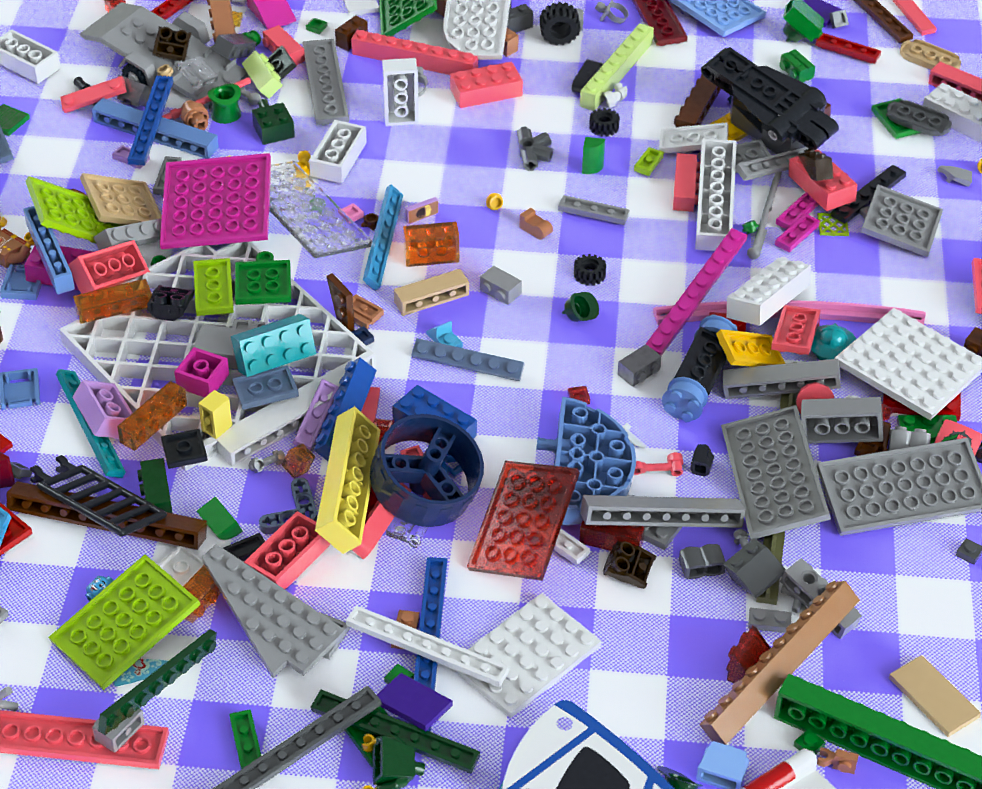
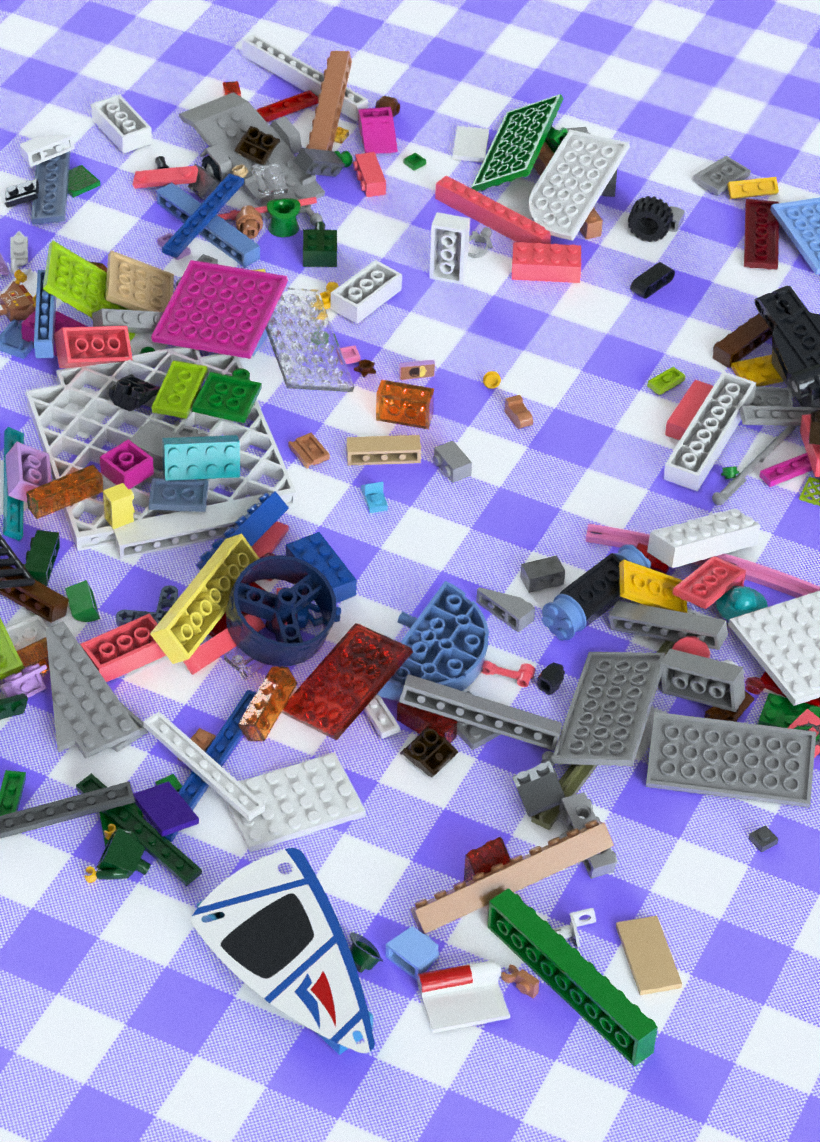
camera: 20 degrees right, 0 degrees up
(112, 301) = (81, 377): clear orange brick -> none
(184, 448) = (79, 529): black tile -> none
(205, 617) = (24, 682): none -> lavender bracket
(245, 548) = (86, 633): black tile -> none
(259, 464) = (140, 562): light grey bar -> none
(262, 74) = (334, 197): yellowish green brick -> none
(281, 62) = (352, 192): pearl dark grey tile -> none
(298, 460) = (177, 570): clear orange brick -> none
(315, 417) = (212, 534): lavender tile -> none
(325, 81) = (392, 219): light grey plate -> none
(342, 301) = (287, 438): reddish brown wing -> none
(346, 31) = (437, 172): reddish brown brick -> none
(364, 335) = (297, 474): dark blue plate -> none
(383, 237) = (366, 385): dark azure plate -> none
(455, 565) = (267, 703): none -> clear orange brick
(468, 359) = (384, 523): sand blue plate -> none
(520, 18) = (613, 204): dark grey brick -> none
(533, 148) = (558, 337): dark grey piece -> none
(579, 393) = (469, 585): clear red plate -> none
(581, 307) = (518, 503): dark green piece -> none
(590, 276) = (547, 463): black tyre -> none
(593, 155) = (609, 360): green brick -> none
(593, 210) = (584, 414): light grey plate -> none
(601, 7) = (710, 216): light grey piece -> none
(604, 122) = (644, 330): black tyre -> none
(613, 97) = (676, 305): white arm -> none
(616, 66) = (687, 277): yellowish green brick -> none
(625, 406) = (508, 608): none -> light grey slope
(632, 438) = (496, 638): white bar -> none
(690, 137) = (710, 366): white plate -> none
(696, 291) = (634, 519): dark pink plate -> none
(702, 561) = (497, 769): dark grey brick -> none
(769, 619) = (528, 838): light grey plate -> none
(797, 232) = (774, 490): dark pink plate -> none
(809, 741) = (505, 957): green plate -> none
(855, 692) = (571, 930): none -> white bracket
(901, 438) = (754, 714): light grey brick -> none

